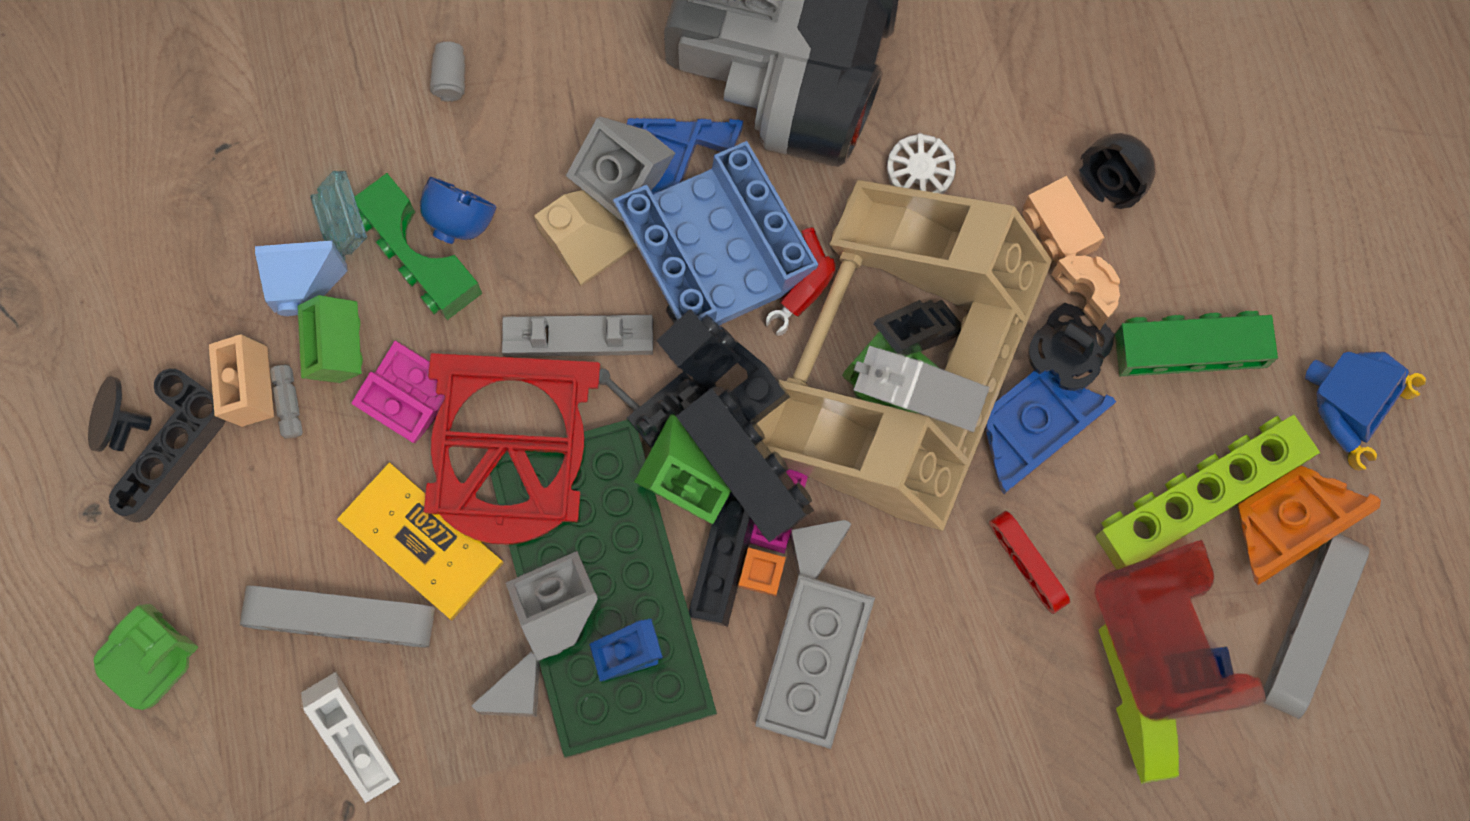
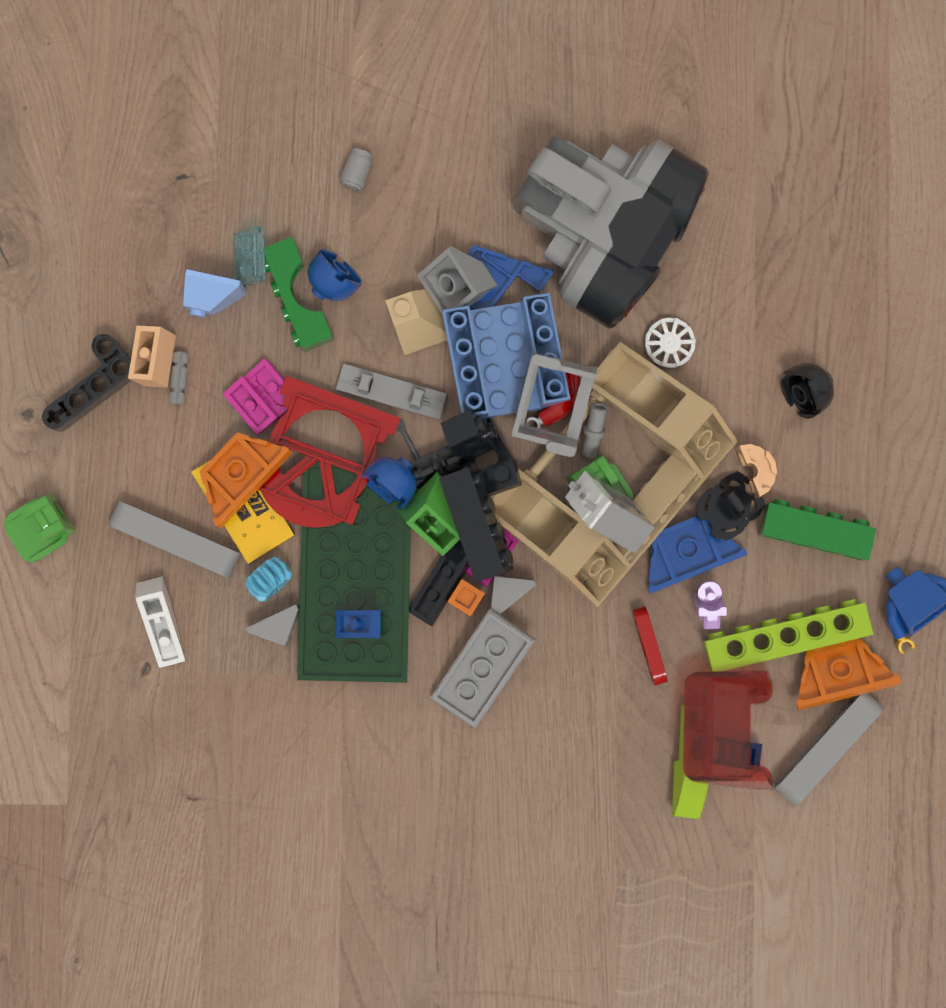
camera: 20 degrees right, 10 degrees up
(110, 421) = (54, 355): black shield -> none
(329, 339) = (219, 345): bright green brick -> none
(402, 497) = (238, 473): none -> orange wing
(483, 629) = (268, 579): none -> medium azure gear
(553, 604) = (319, 577): light grey slope -> none
(612, 443) = (391, 480): none -> blue cylinder
(816, 327) = (554, 441): none -> light grey piece
(861, 301) = (594, 430): none -> light grey pin
(919, 326) = (625, 465): black slope -> none
(1062, 221) = (754, 415): light nougat brick -> none
(1091, 480) = (709, 604): none -> lavender hips

